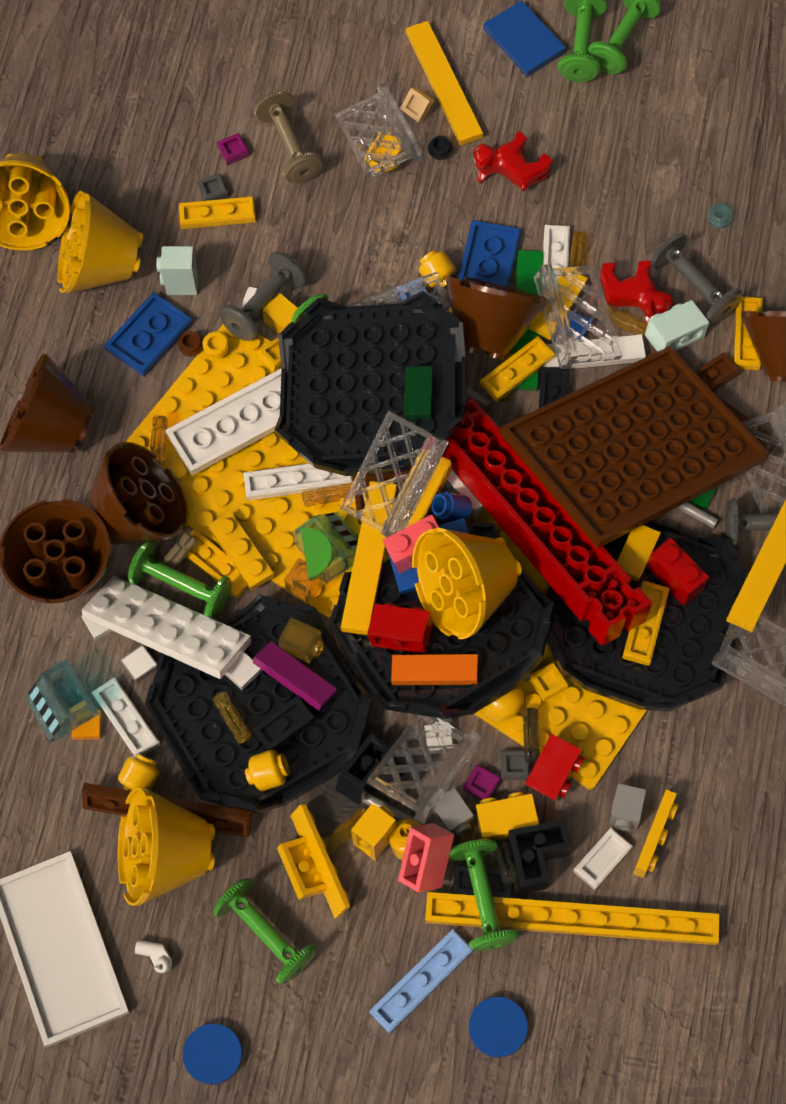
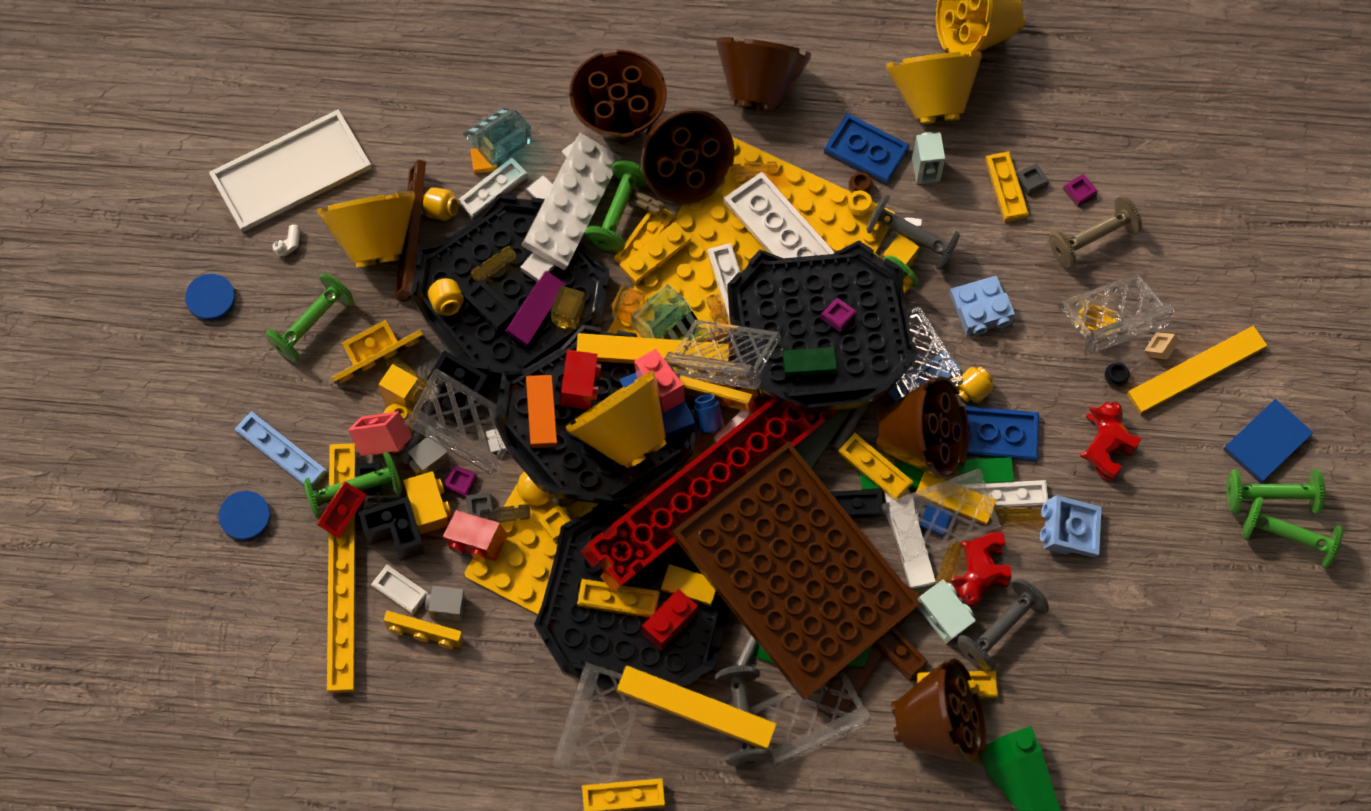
camera: 80 degrees right, 0 degrees up
(317, 552) = (646, 304): bright green tile -> none
(349, 252) = (982, 306): none -> light blue plate
(364, 362) = (838, 314): none -> magenta tile
(513, 906) = (341, 509): none -> red plate
(597, 209) = (1071, 526): none -> light blue plate
(719, 210) = (1088, 641): clear light blue plate -> none

